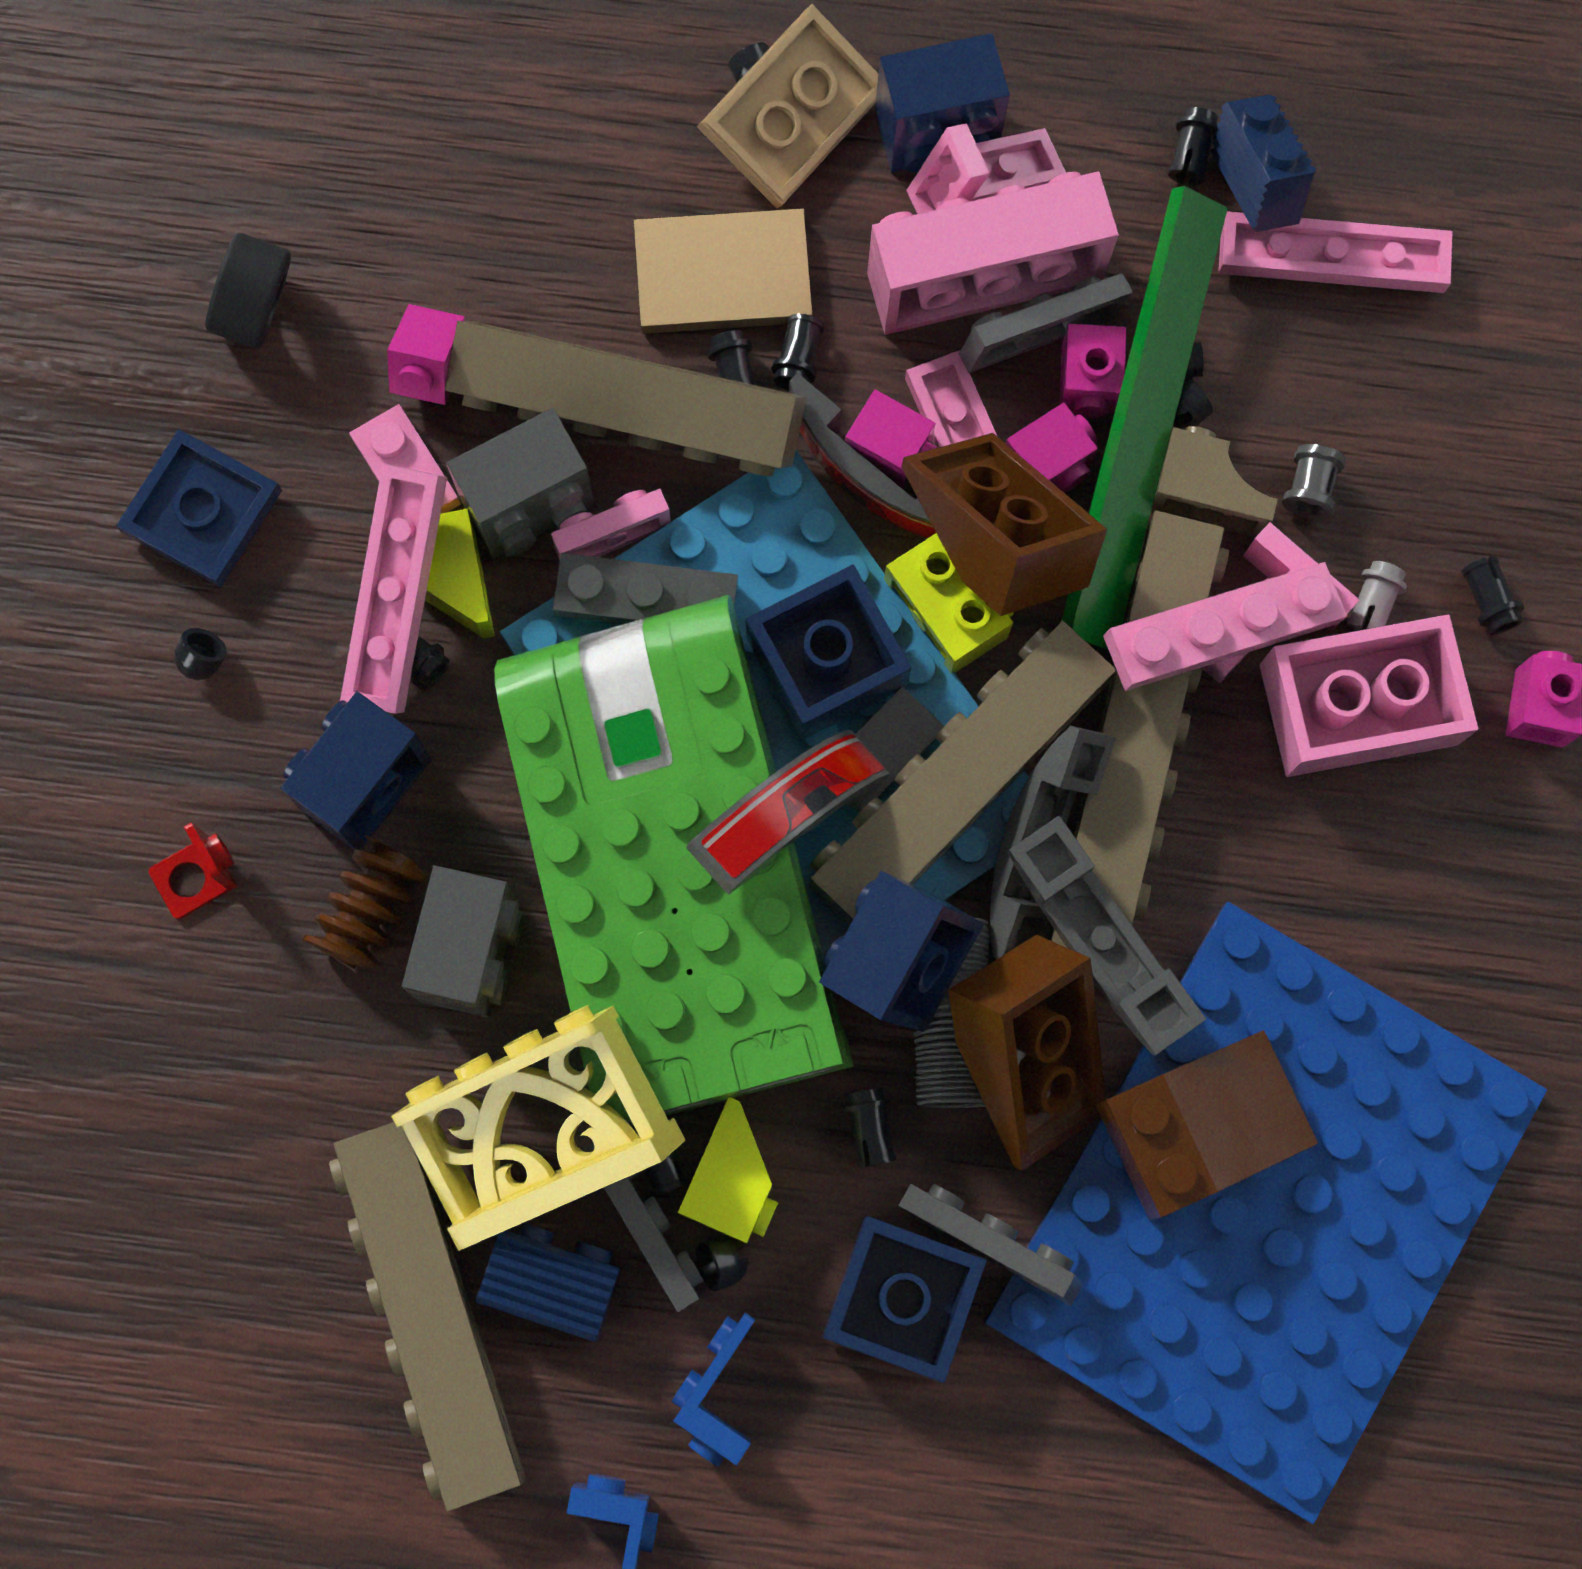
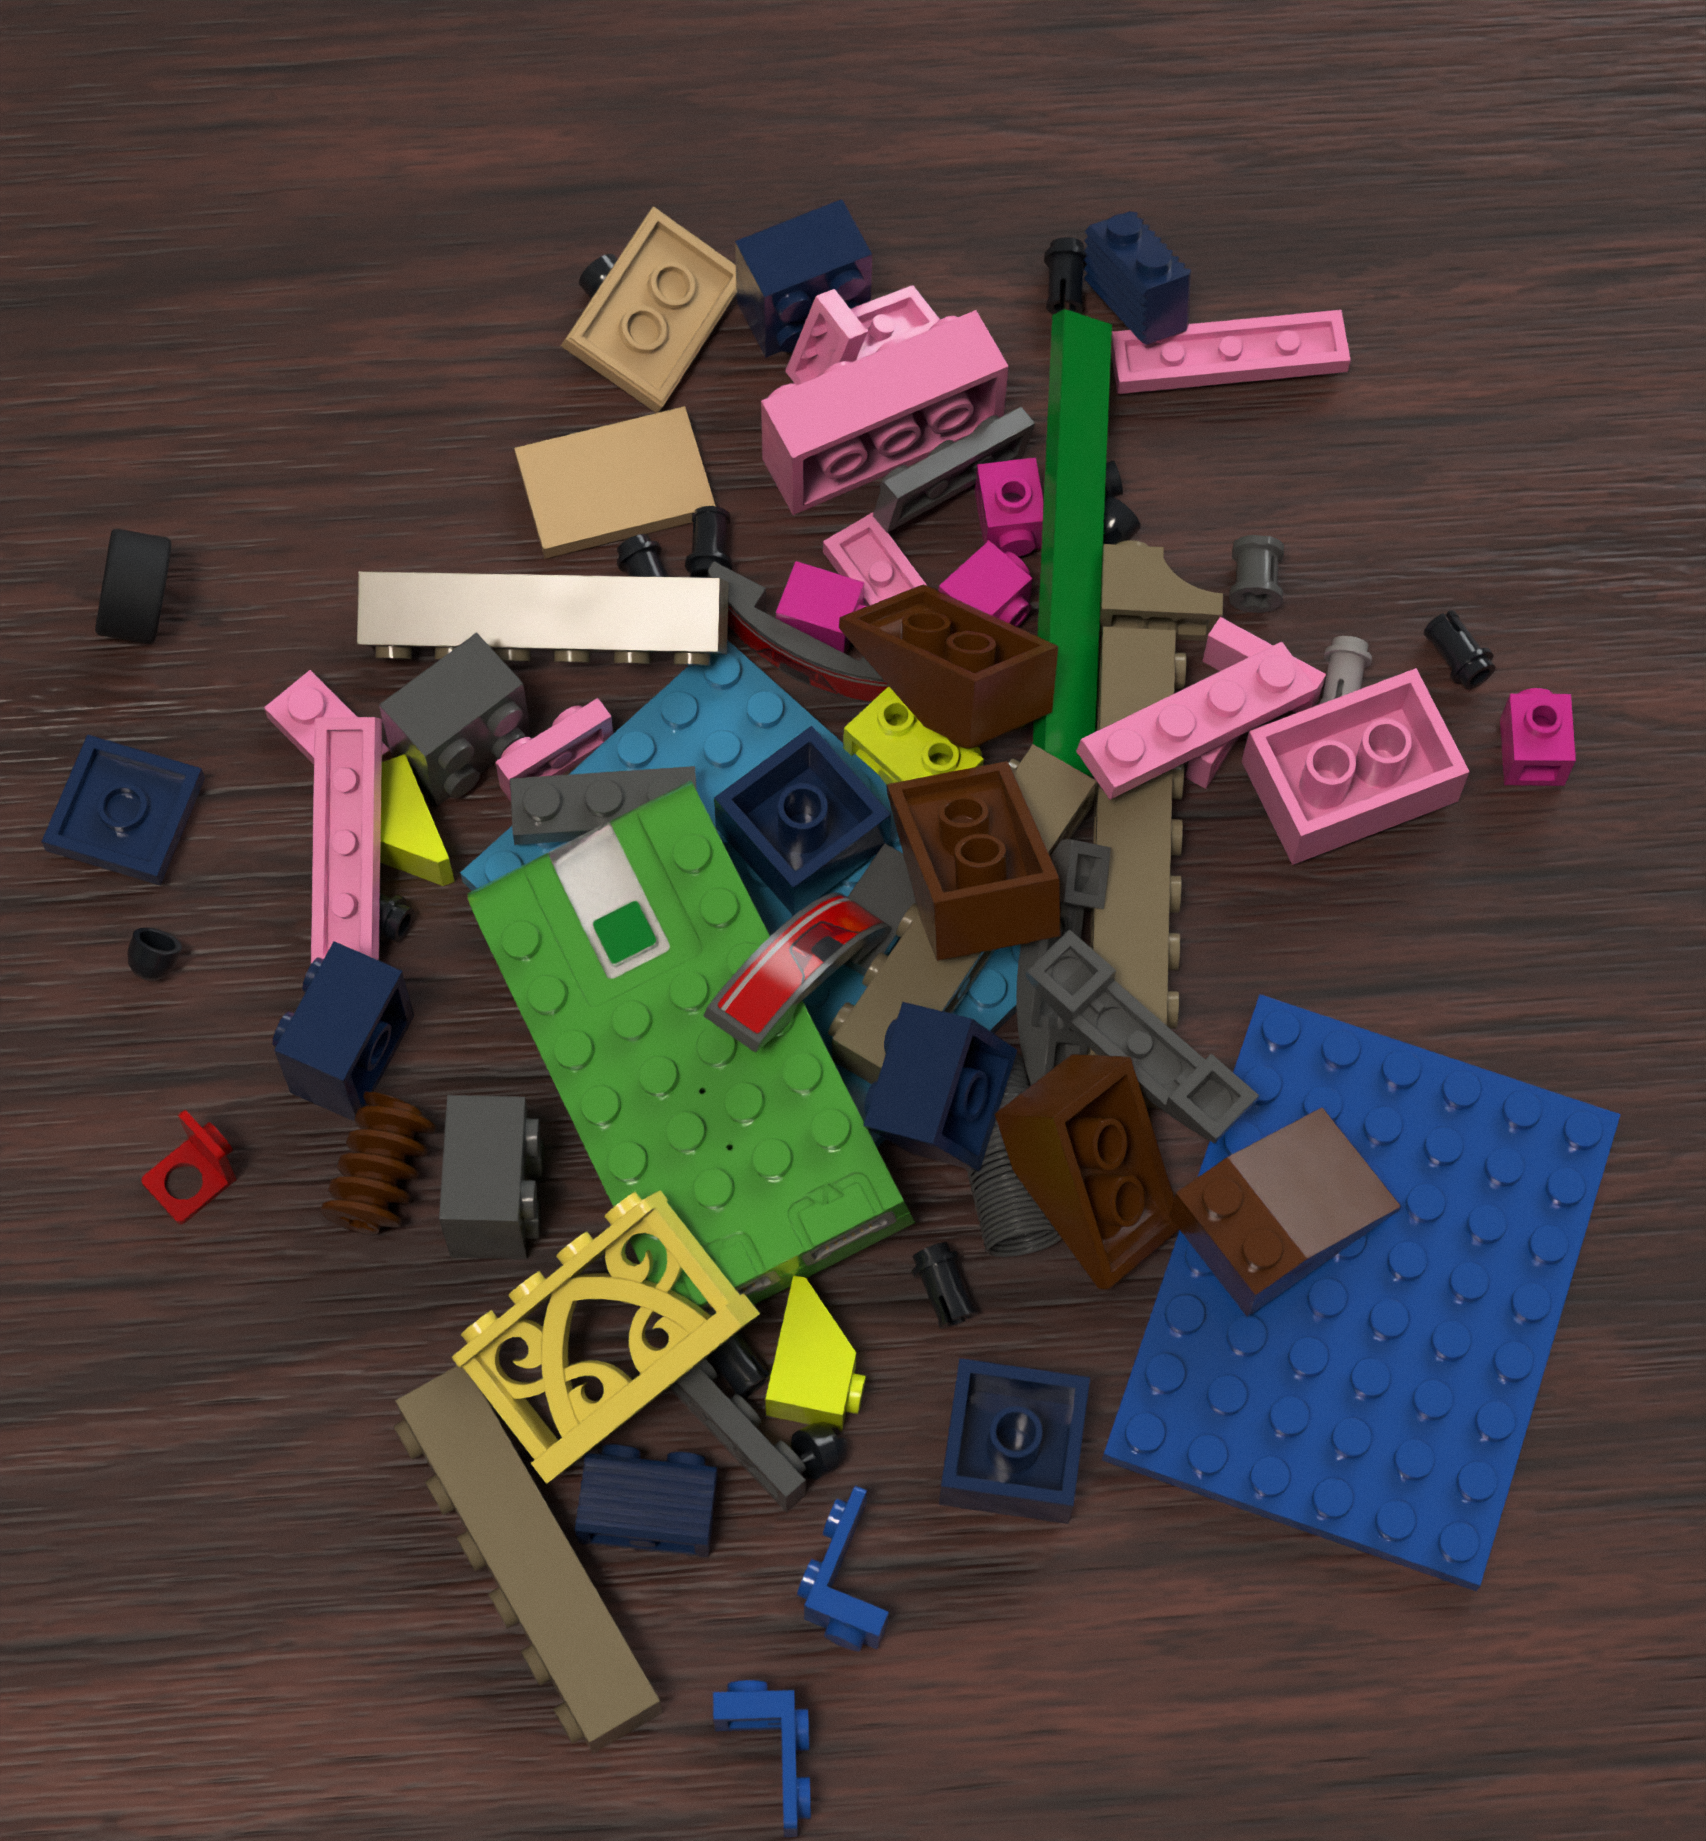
camera: 10 degrees left, 10 degrees down
(422, 354) = (327, 615): dark pink brick -> none
(982, 731) = (975, 861): none -> reddish brown slope
(993, 1241) = (1145, 1380): dark grey plate -> none

